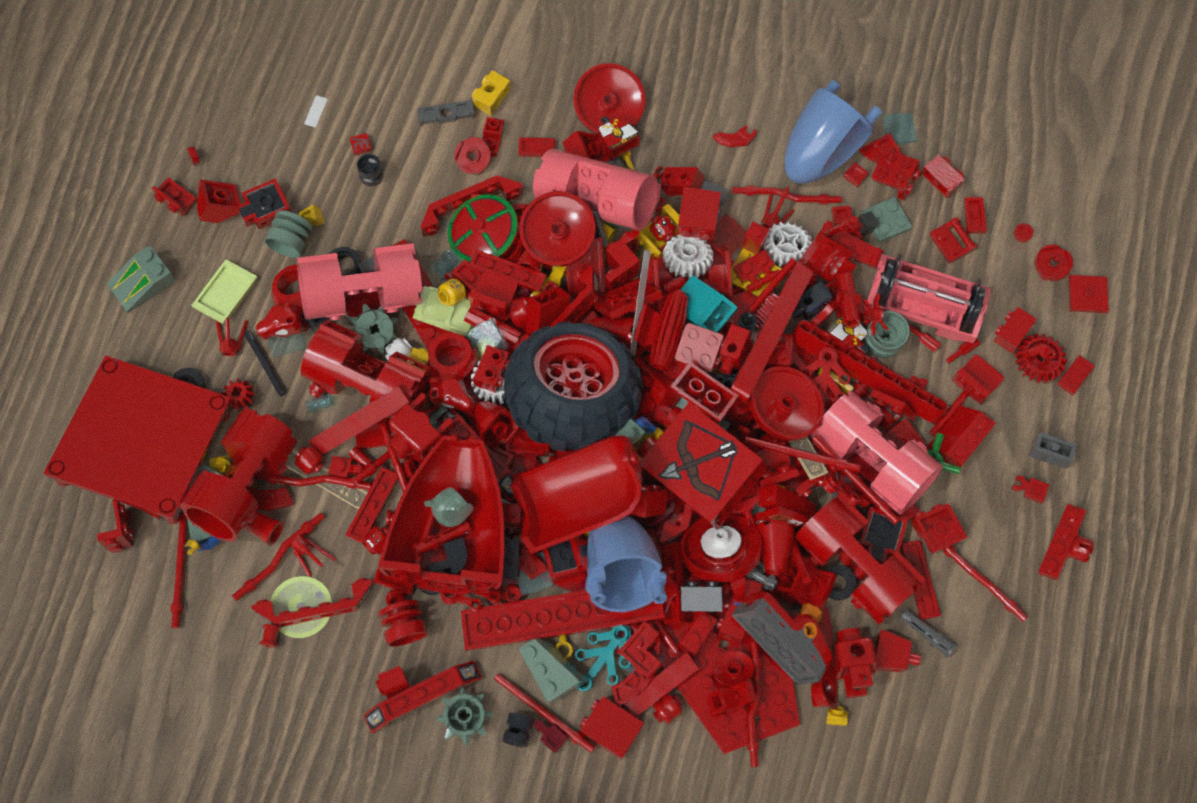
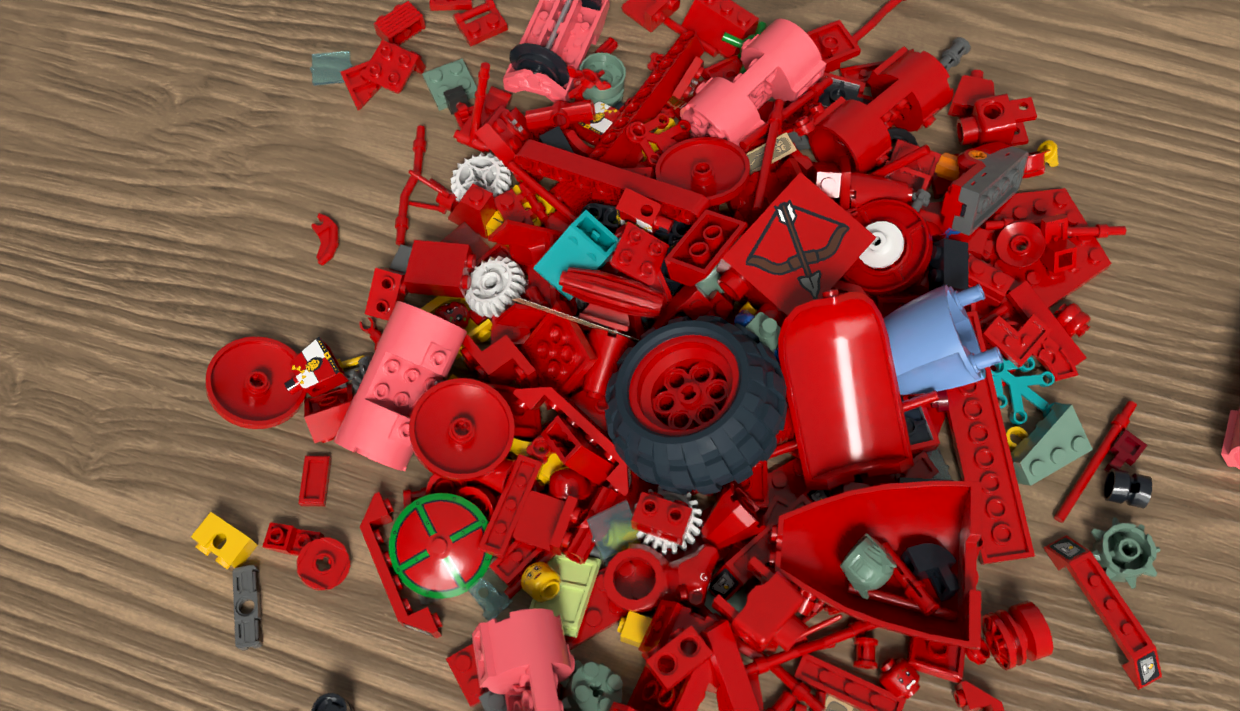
camera: 85 degrees left, 5 degrees down
(379, 370) = (683, 663): none -> red brick
(392, 682) = (1098, 645): red brick -> none
(398, 345) = (623, 658): white head -> none
(611, 727) = (1104, 381): red brick -> none
(825, 136) = (342, 125): medium blue windscreen -> none
(840, 214) = (443, 126): red plate -> none
(855, 174) = (389, 113): red tile -> none
(963, 349) = (614, 19): red axle -> none

